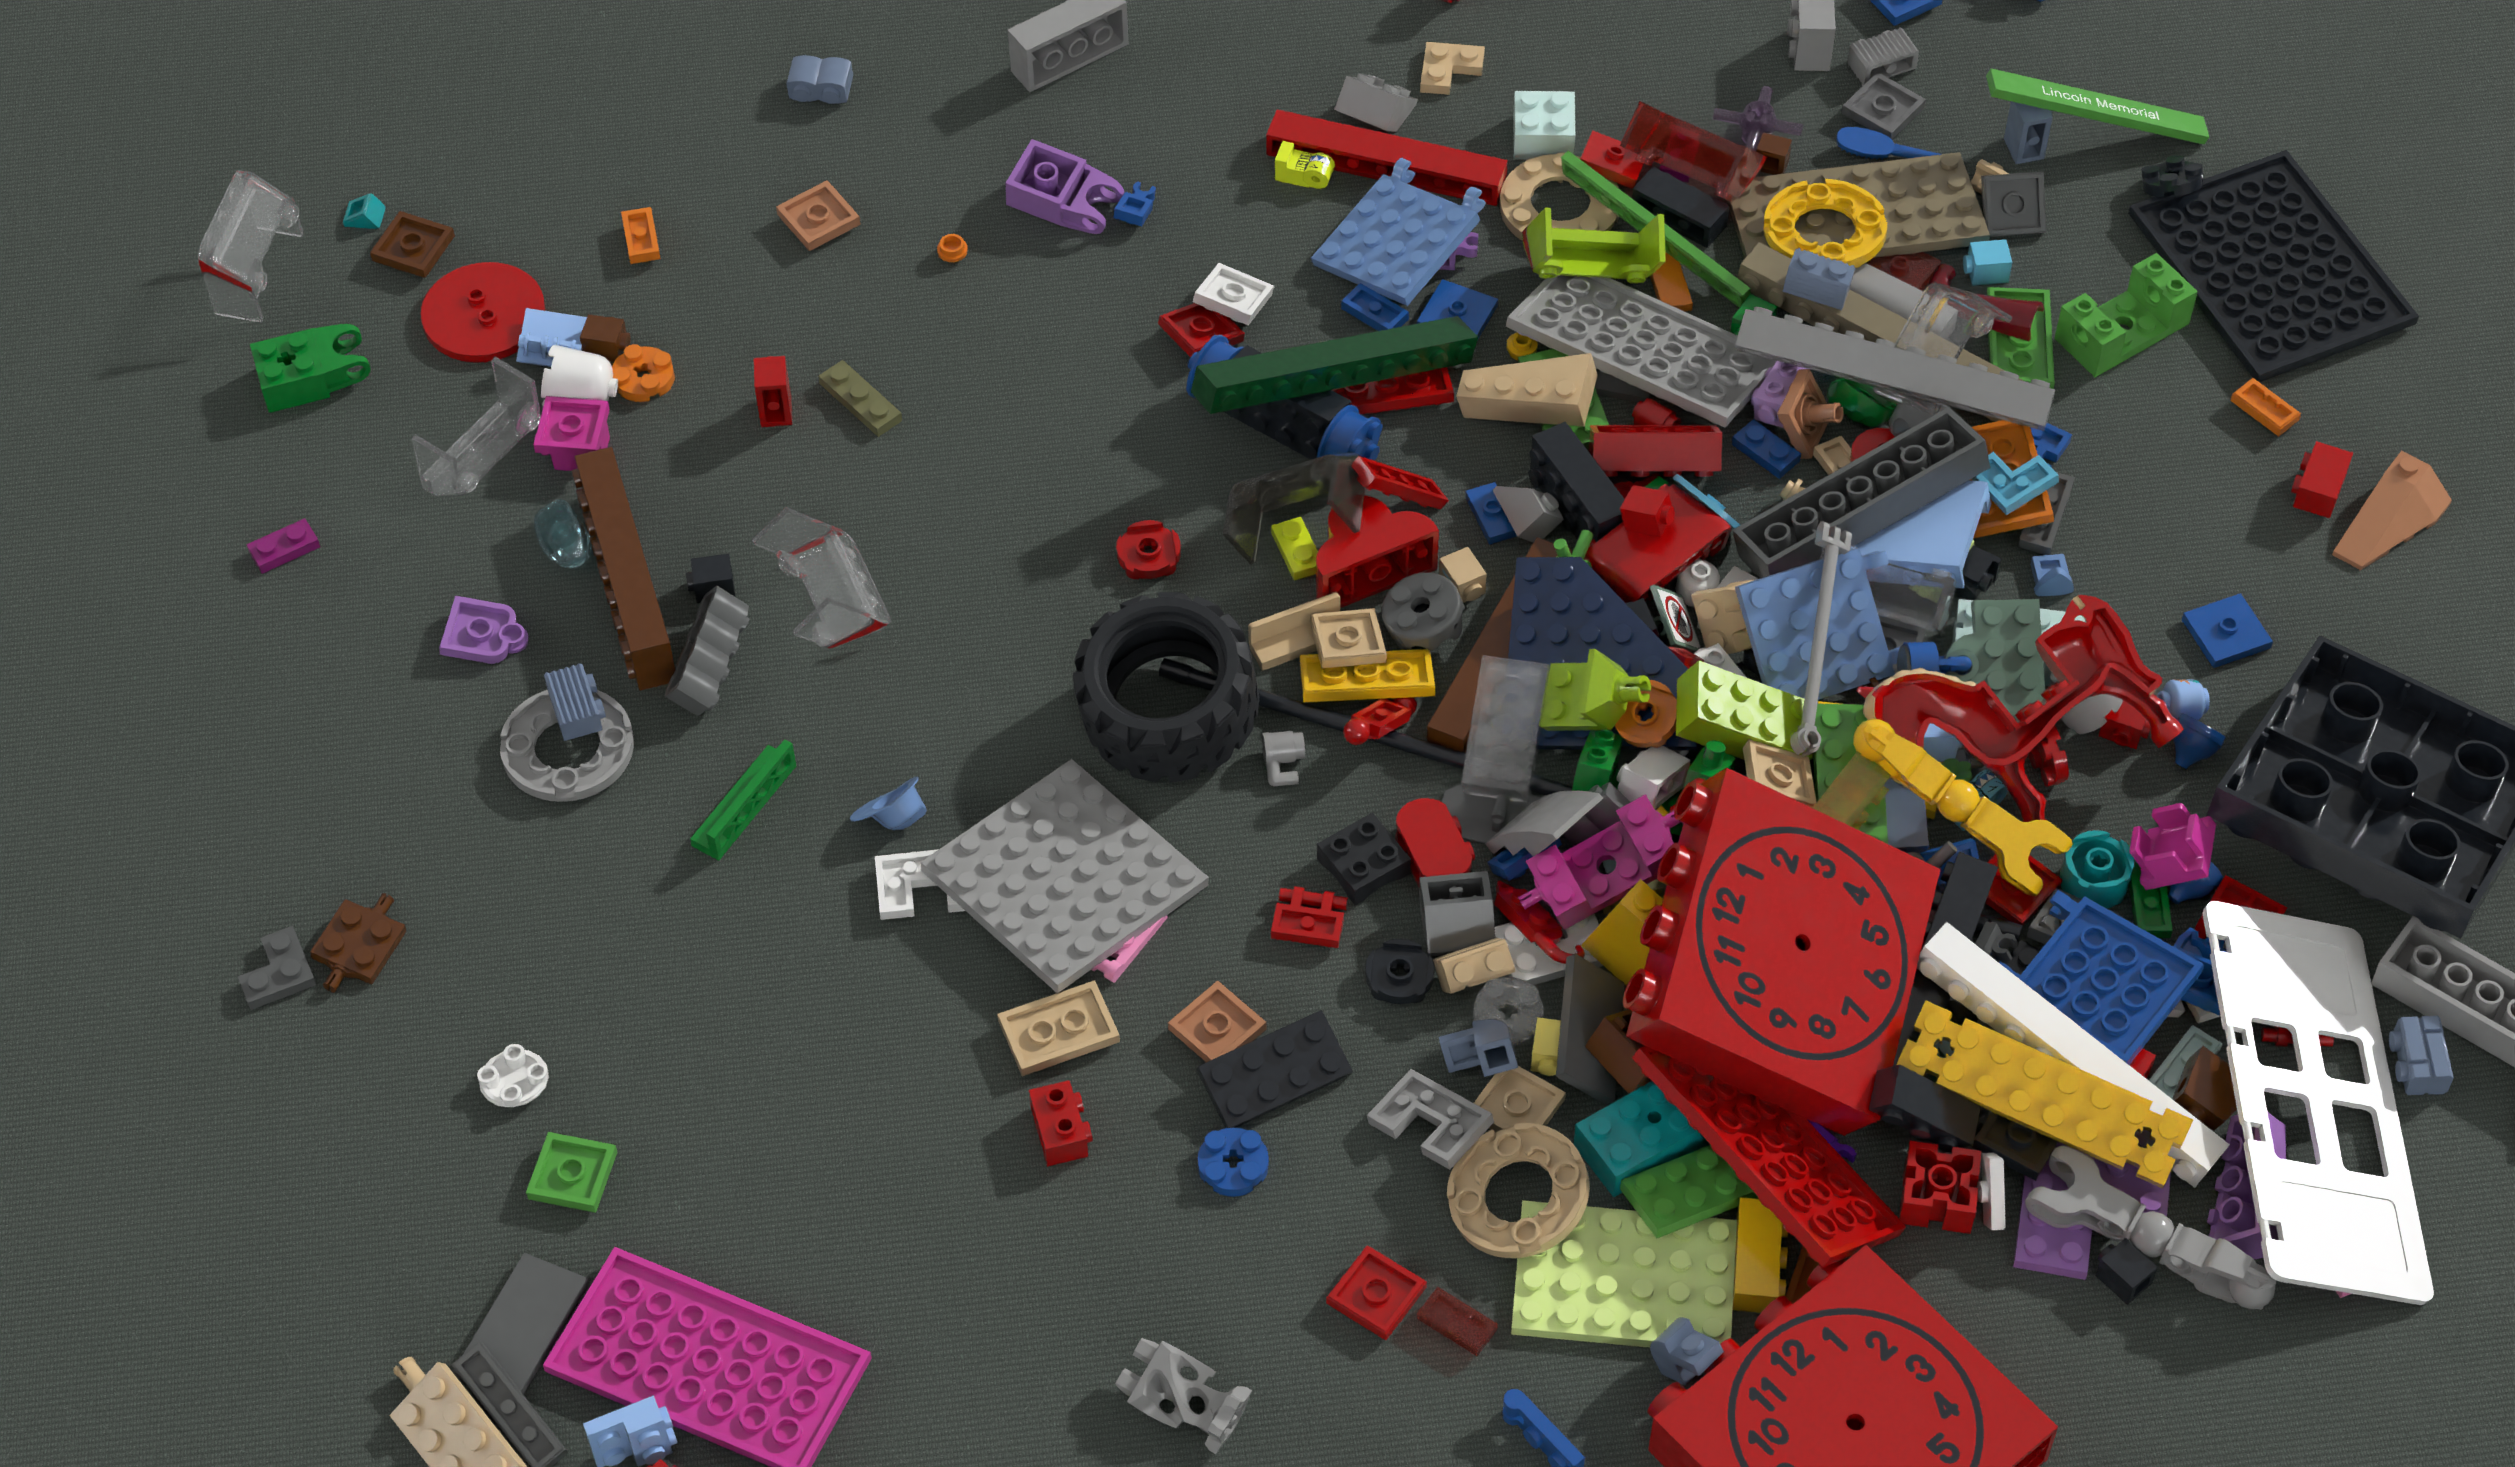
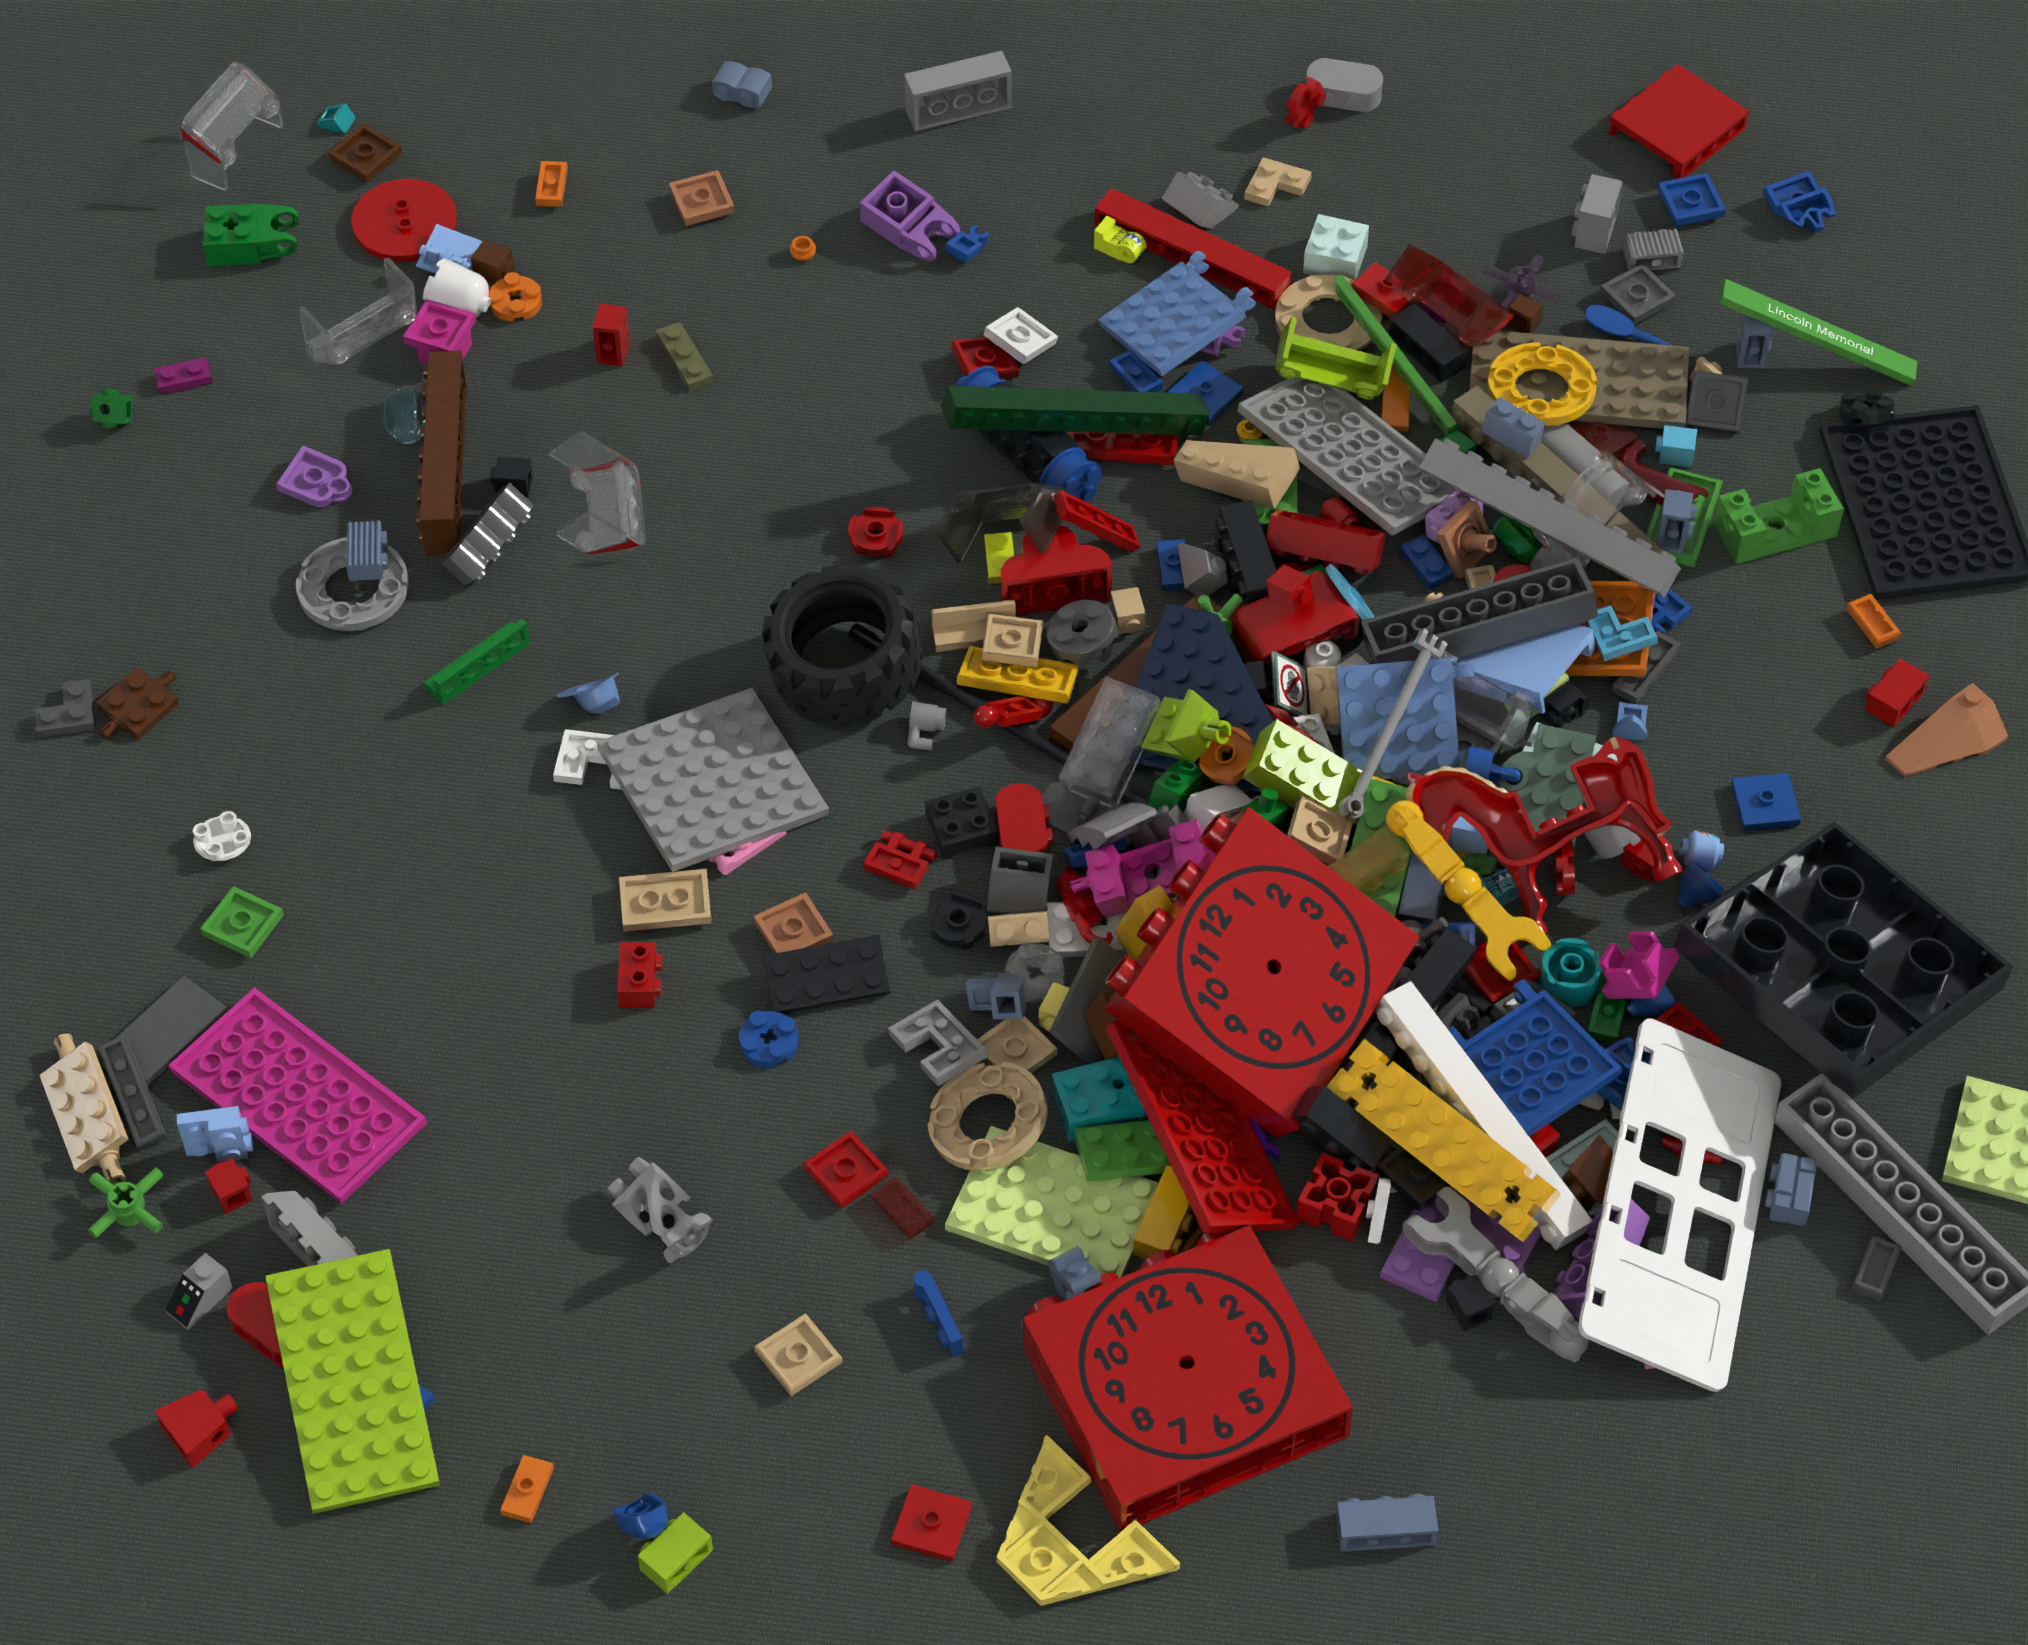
camera: 15 degrees right, 0 degrees up
(221, 593) = (111, 408): none -> green brick
(2025, 343) = (1675, 520): none -> sand blue brick

